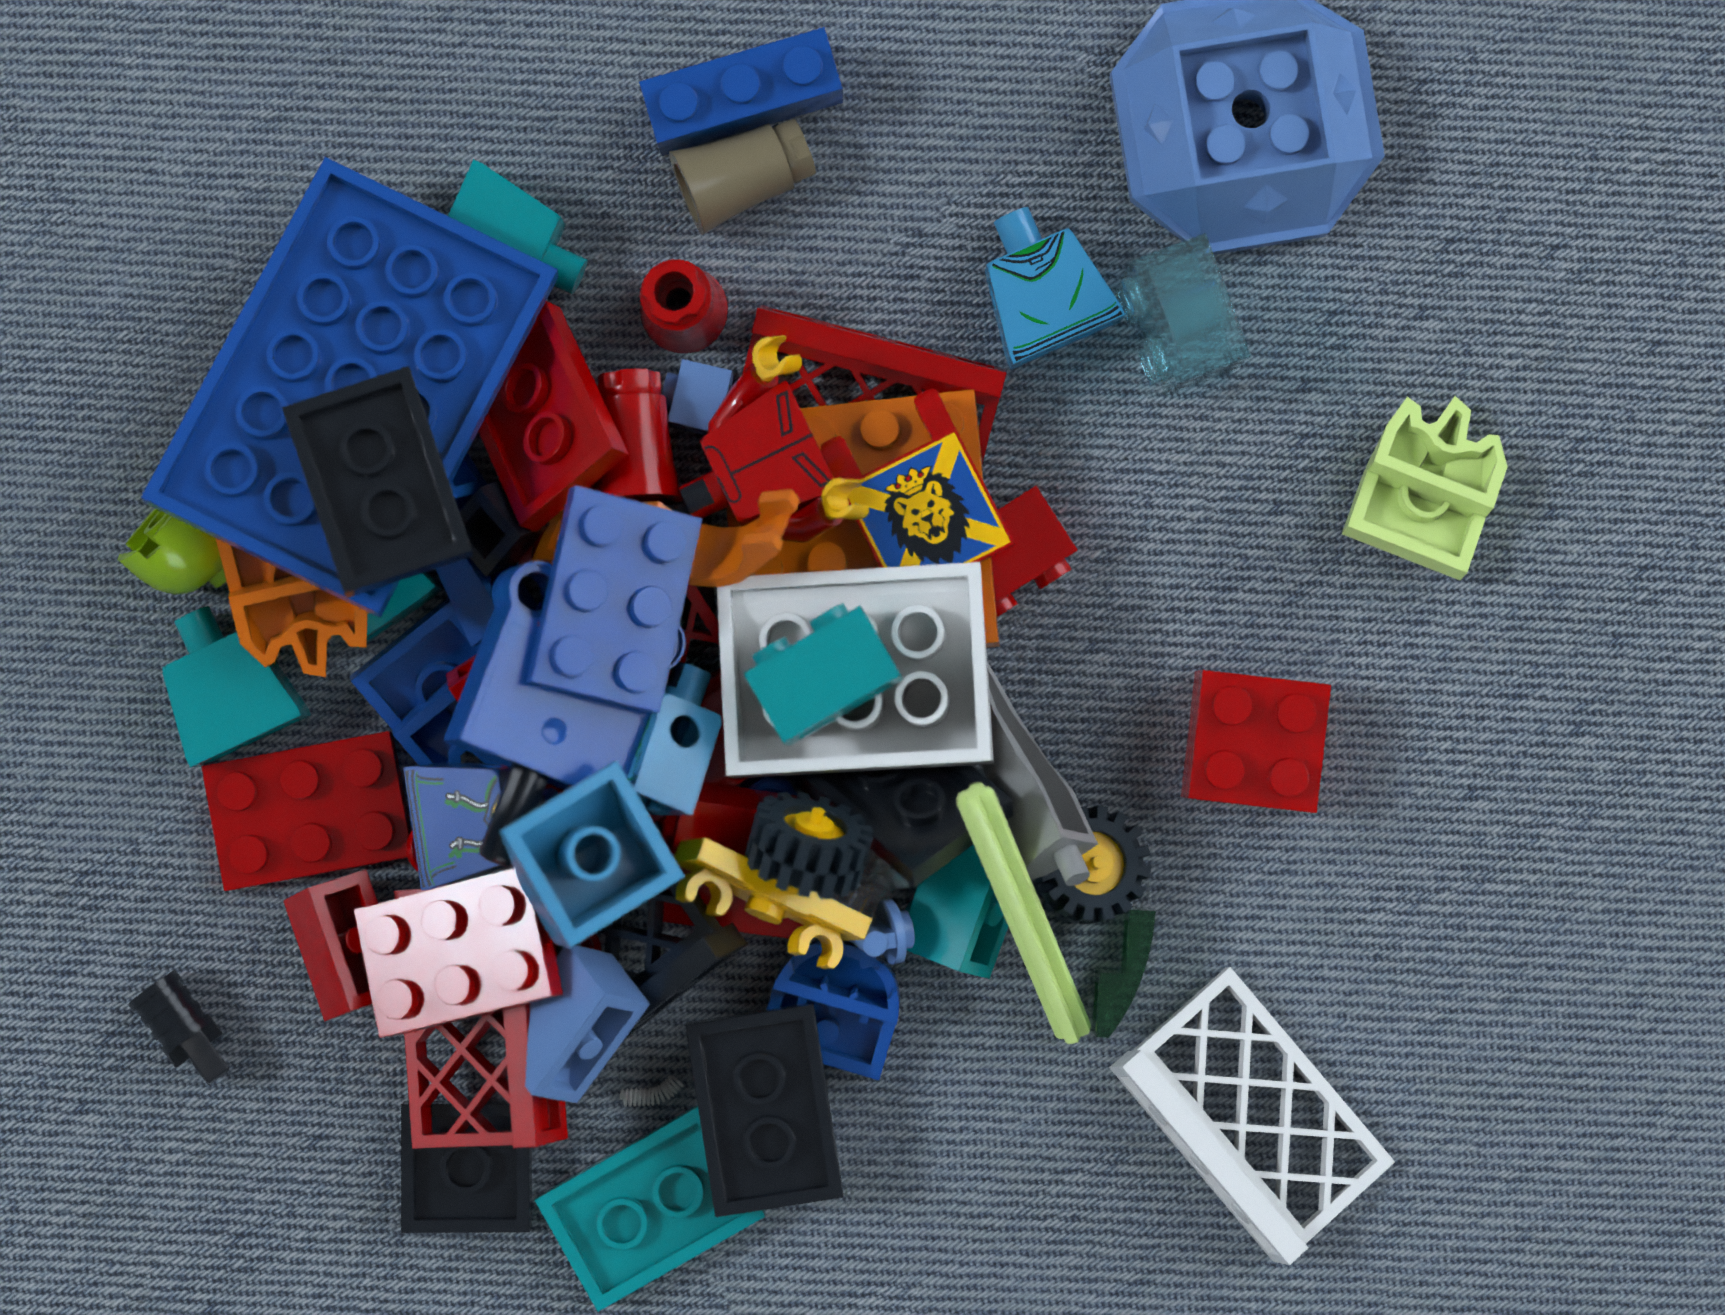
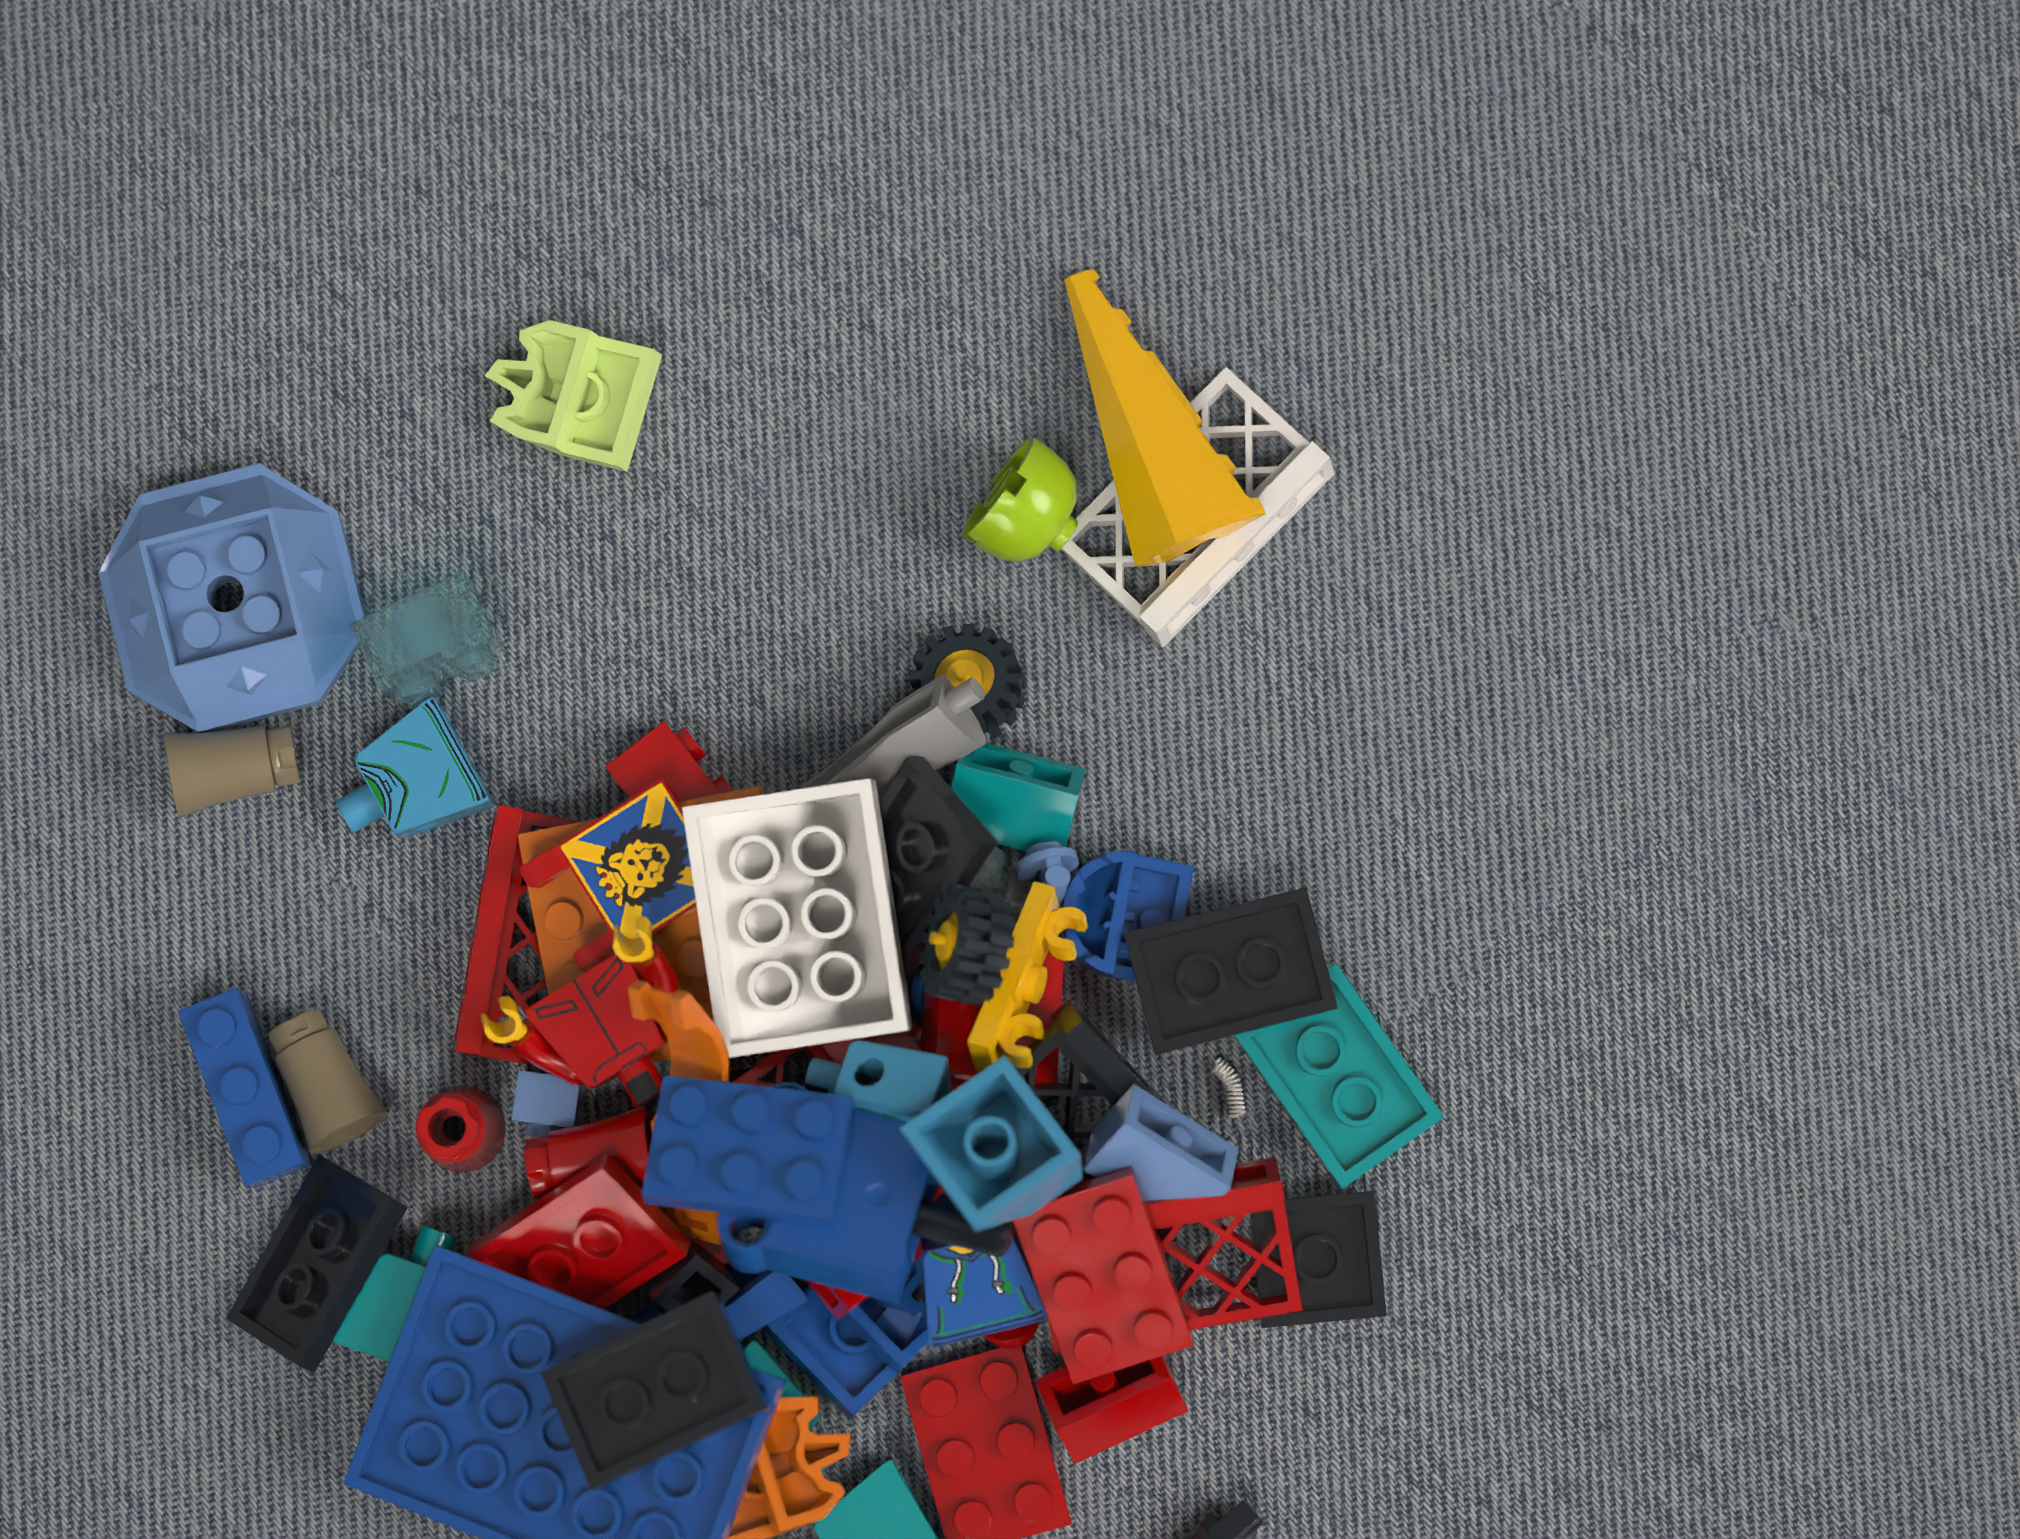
camera: 85 degrees left, 5 degrees down
(555, 149) = (316, 1263): none -> black plate
(822, 673) = (801, 944): teal brick -> none
(1023, 912) = (1016, 738): yellowish green axle -> none
(1074, 100) = (228, 765): none -> dark tan plant
(1117, 987) = (1085, 646): clear green slope -> none
(1256, 741) = (833, 535): red brick -> none
(1267, 943) = (1026, 506): none -> lime cylinder
(1295, 1090) = (1163, 467): none -> yellow wedge

